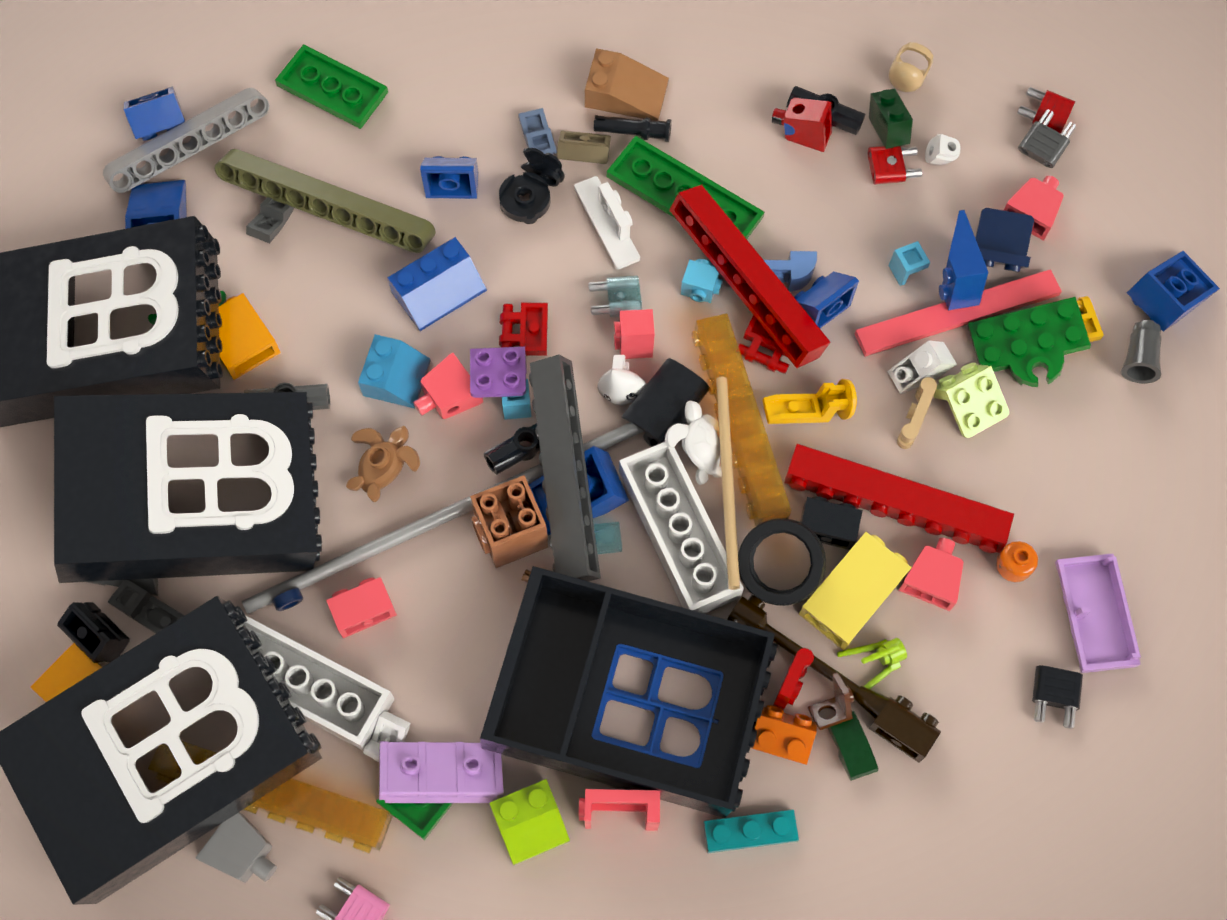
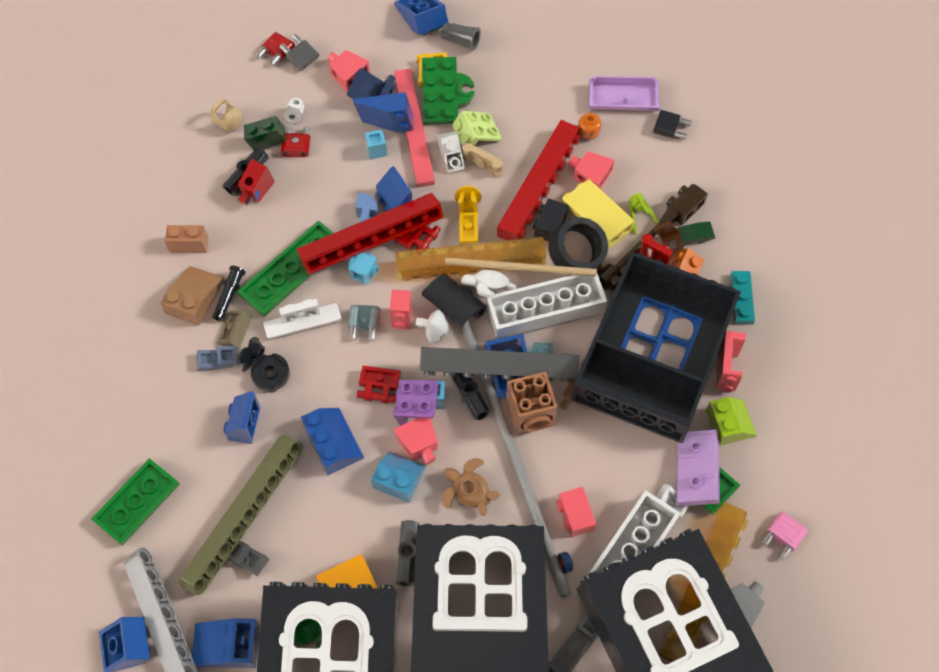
camera: 80 degrees left, 5 degrees down
(704, 62) = (186, 238): none -> nougat brick

